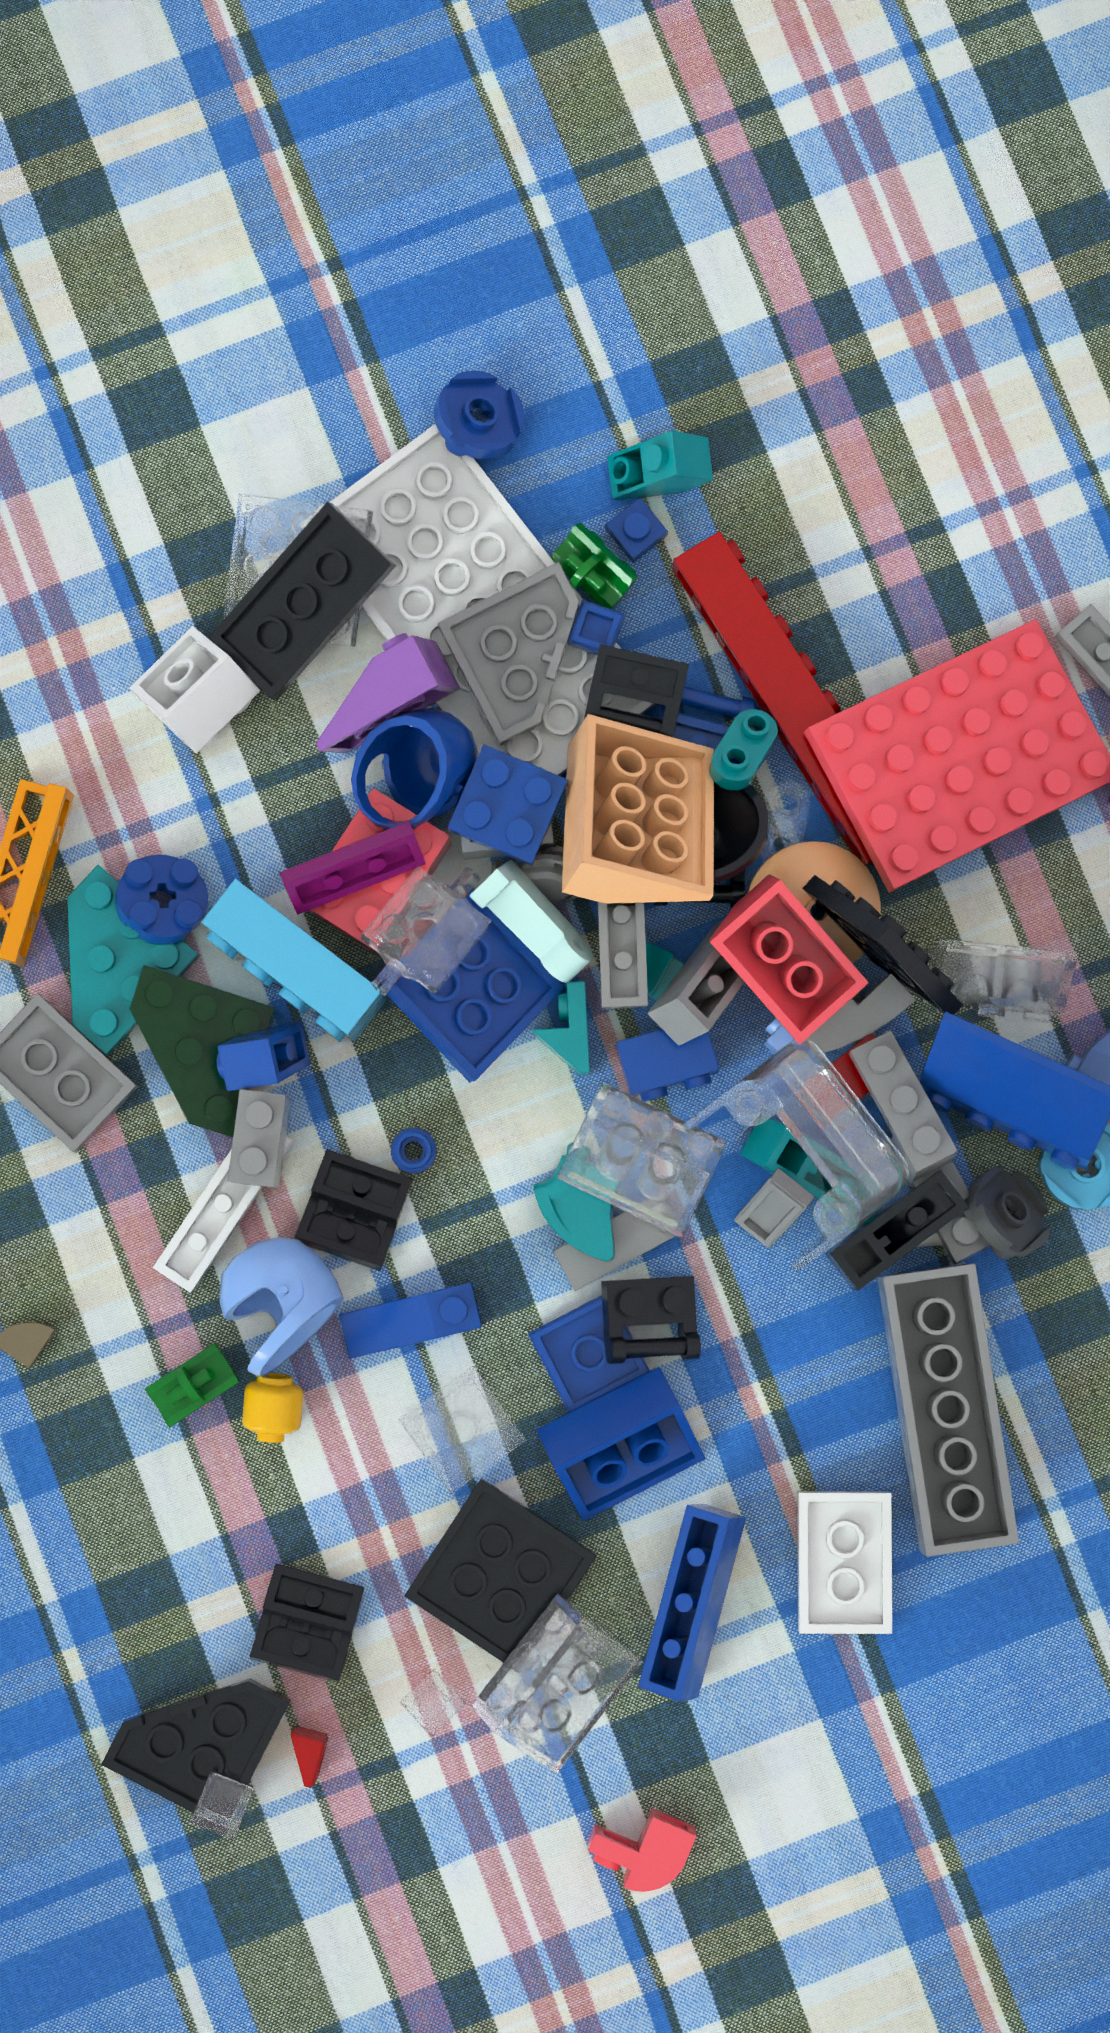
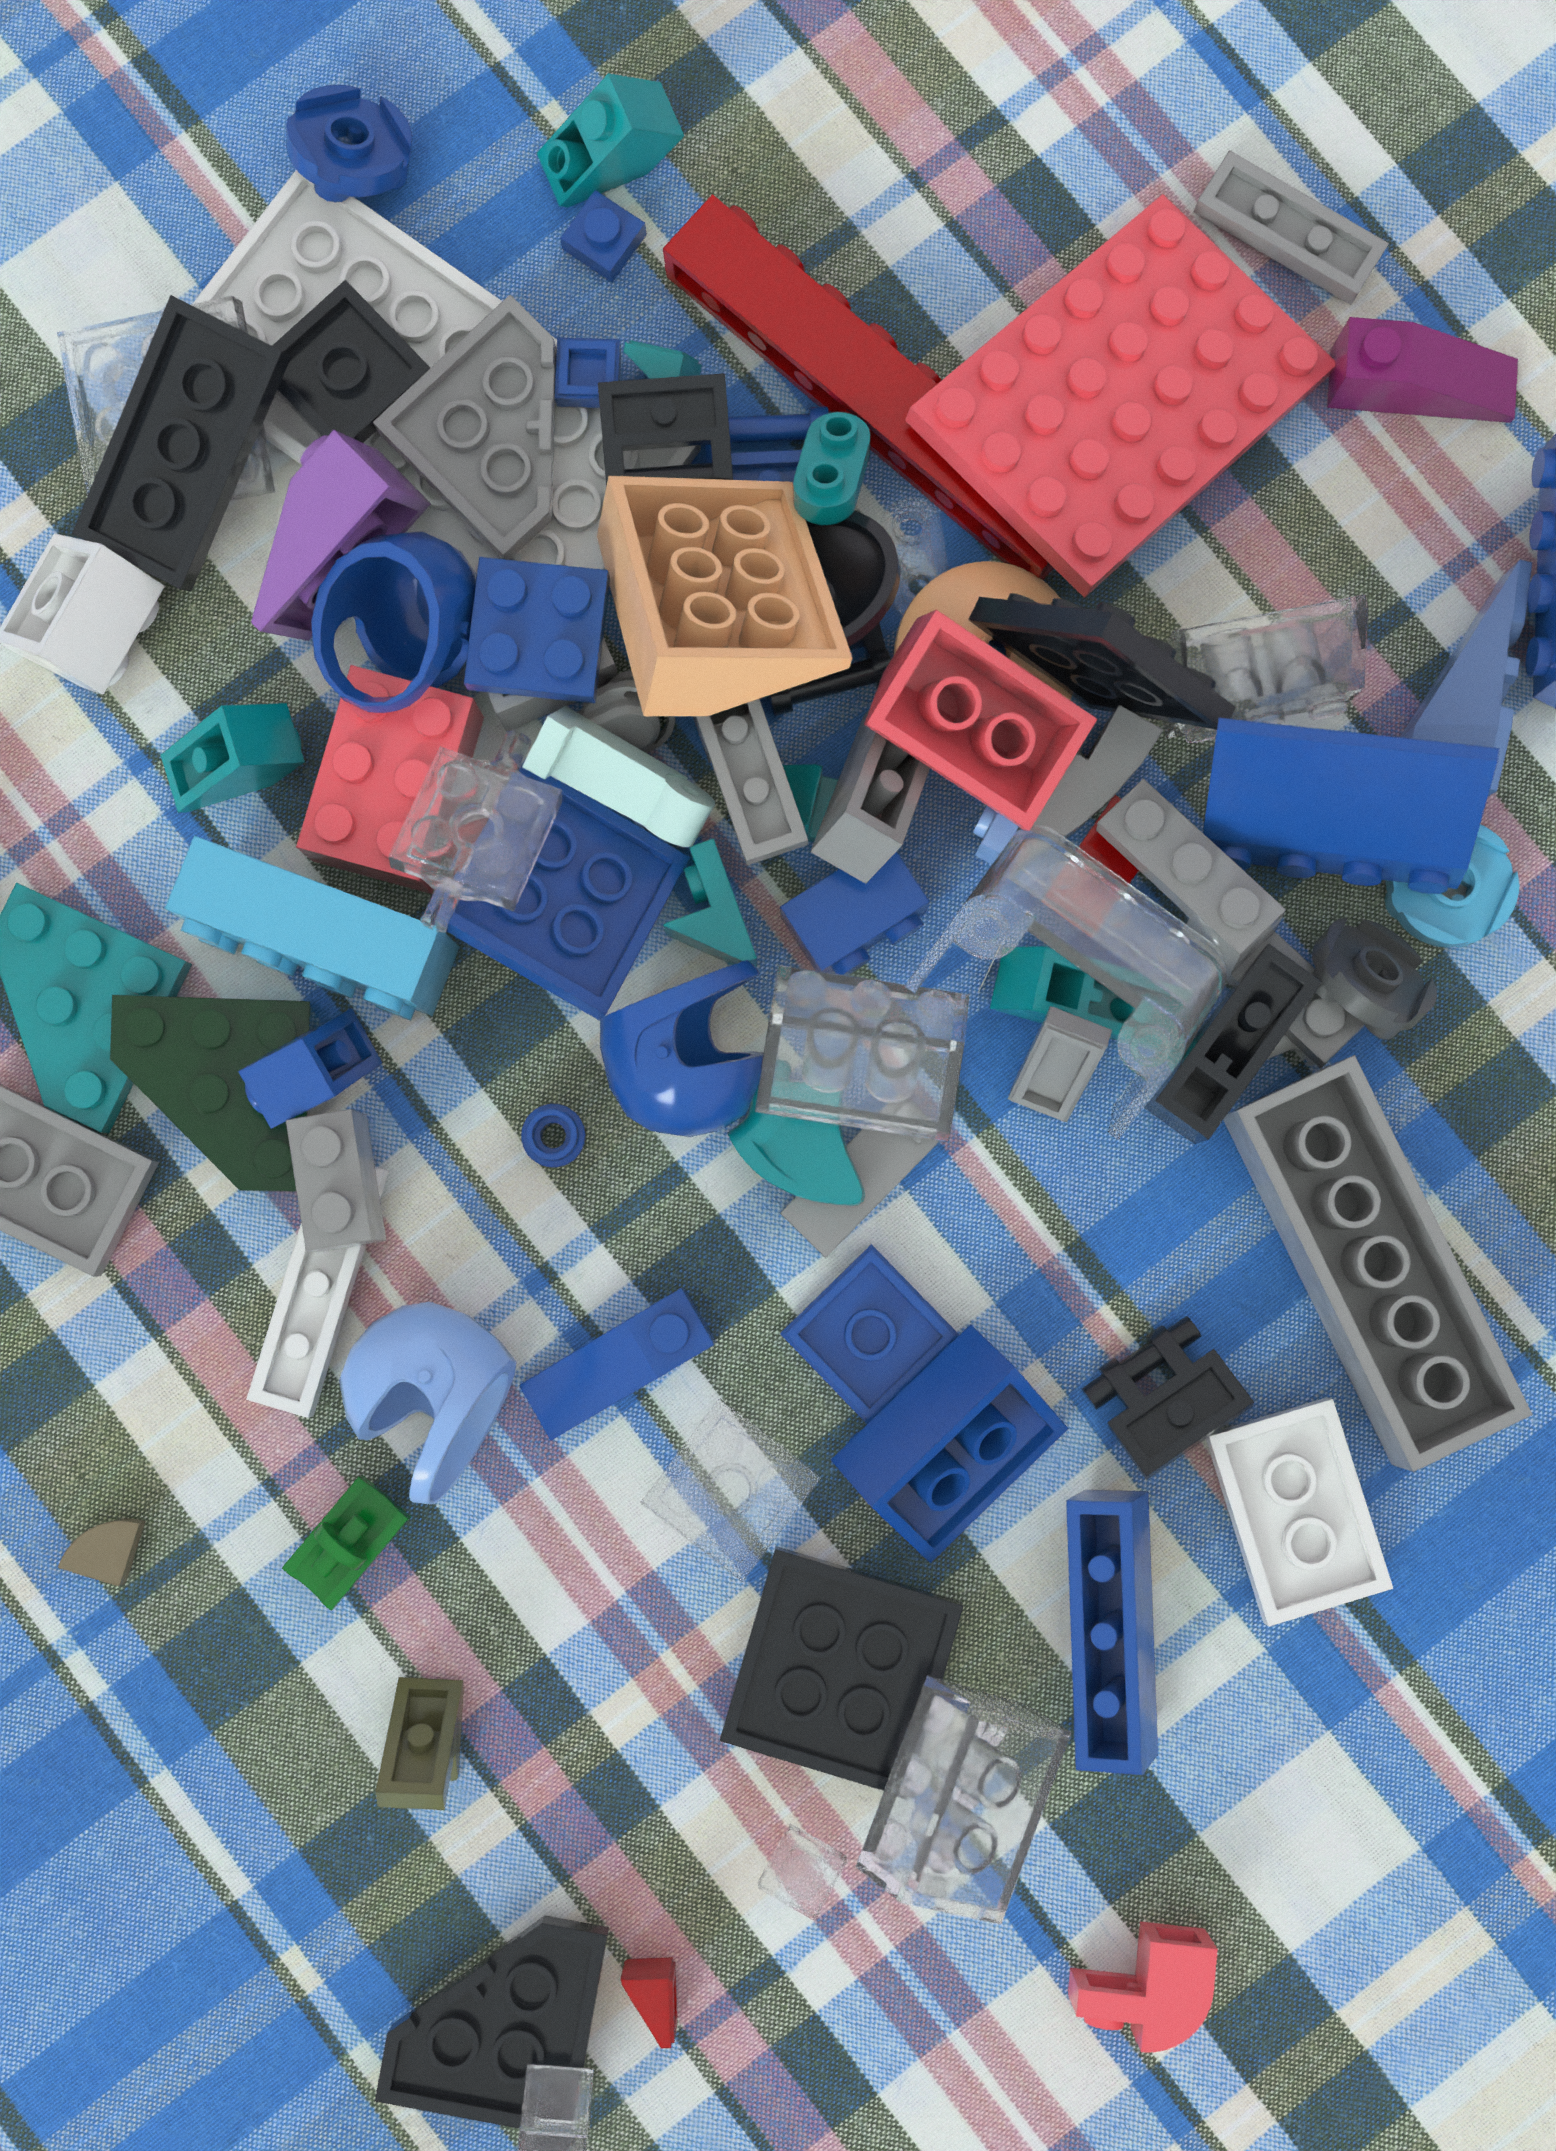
camera: 15 degrees left, 0 degrees up
(167, 874) = (104, 869): blue plate -> none
(203, 1535) = (421, 1744): none -> olive slope
(271, 821) = (232, 755): none -> teal slope
(272, 1407) = (465, 1538): yellow head -> none
(307, 1623) = (599, 1816): black slope -> none
(352, 868) = (350, 774): magenta plate -> none
(353, 1210) = (496, 1239): black slope -> none
(430, 579) = (345, 365): none -> black plate
(507, 1127) = (667, 1065): none -> blue piece
(594, 567) = (561, 292): green hips -> none
(650, 639) = (661, 361): none -> teal slope
(650, 1303) = (929, 1244): black plate -> none
(784, 1469) = (1178, 1412): none -> black plate

